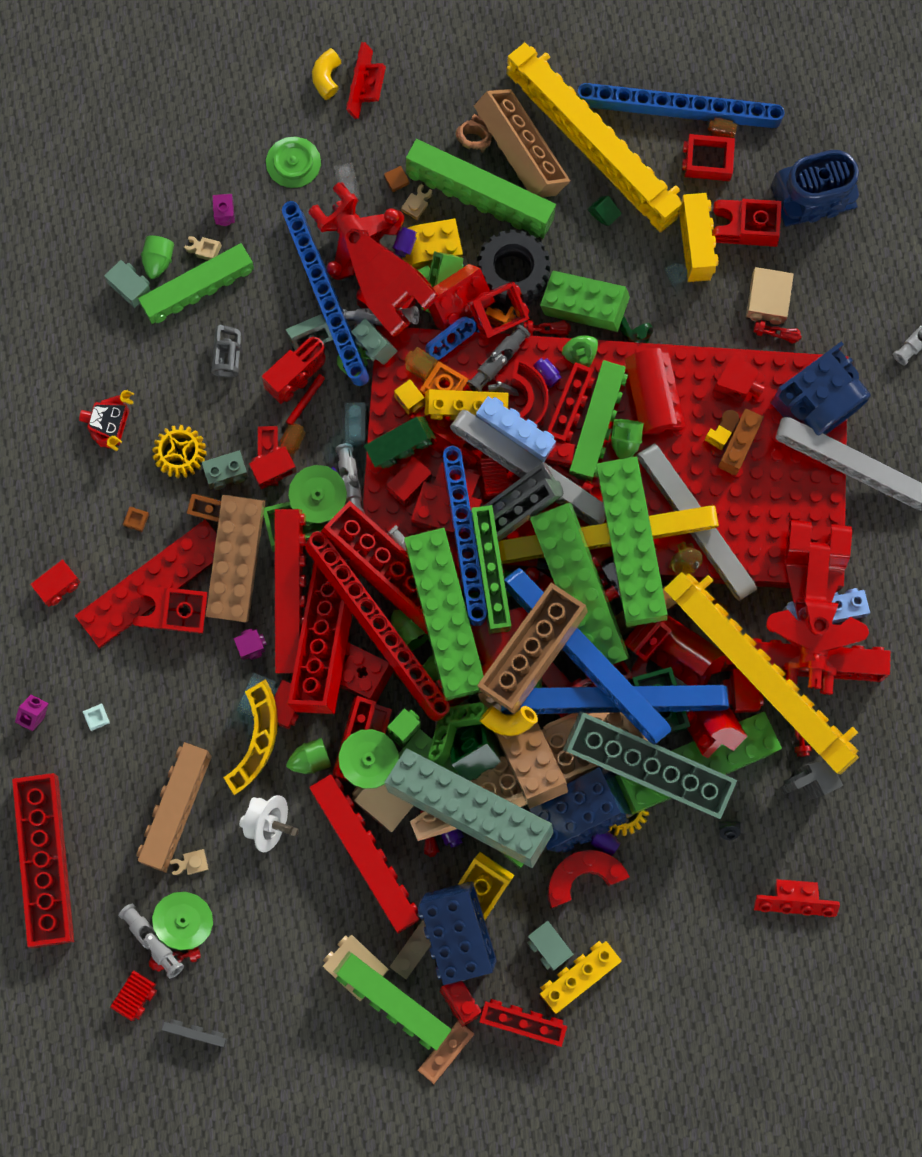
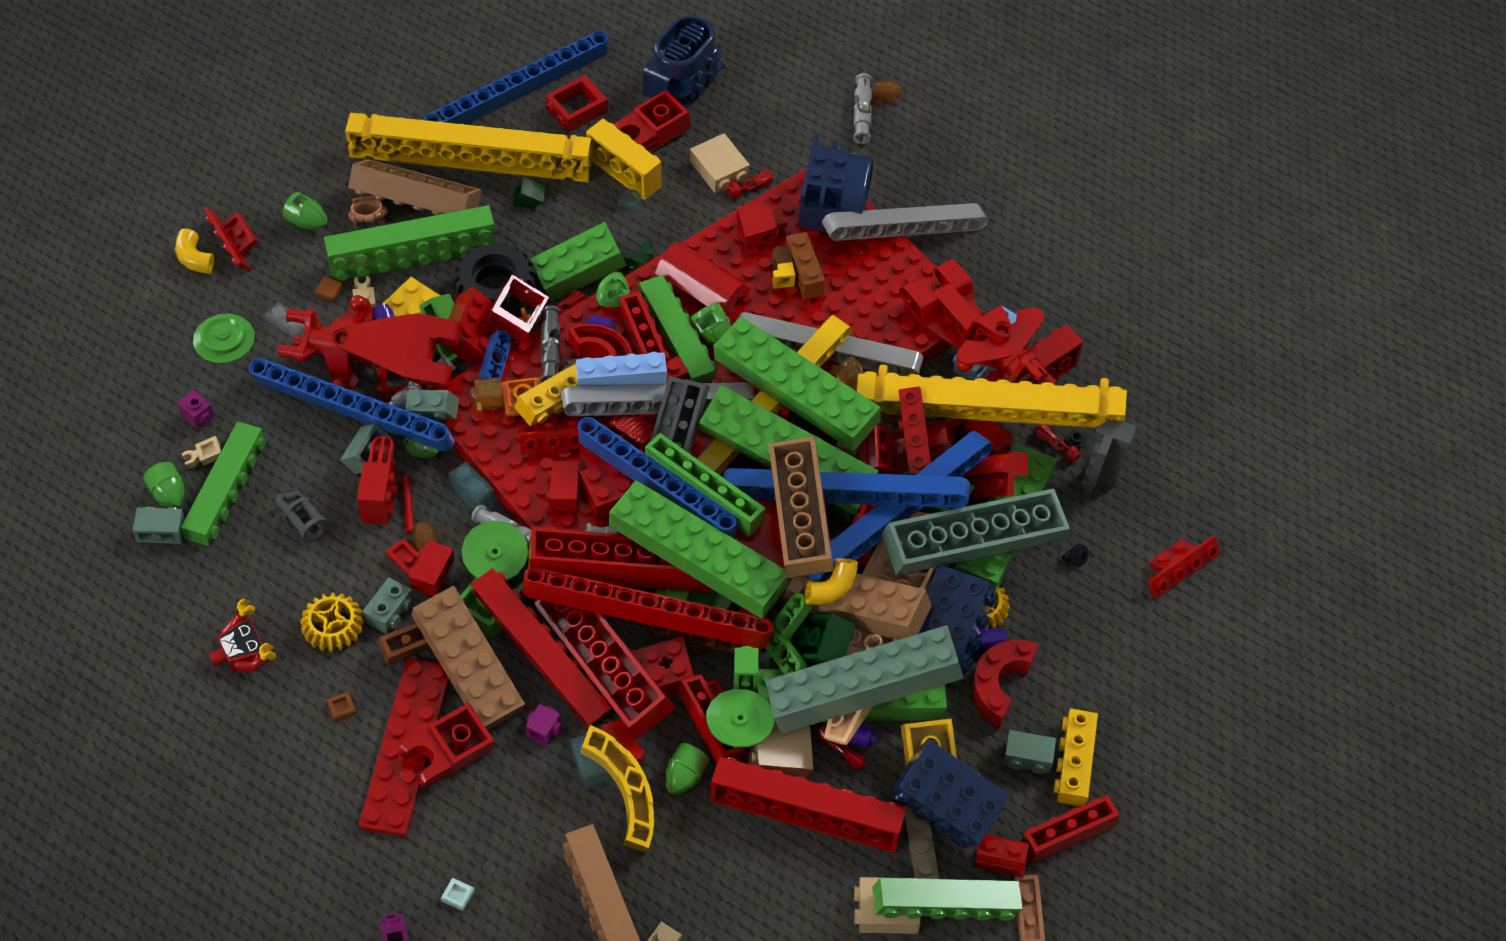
camera: 40 degrees left, 20 degrees down
(55, 583) = (315, 812): red brick -> none
(266, 822) = (696, 848): white piece -> none
(400, 442) = (531, 454): dark green brick -> none
(409, 397) = (503, 424): yellow brick -> none
(431, 104) = (306, 216): none -> bright green helmet
(682, 649) = (914, 429): none -> red bracket
(722, 127) = (565, 76): clear orange brick -> none

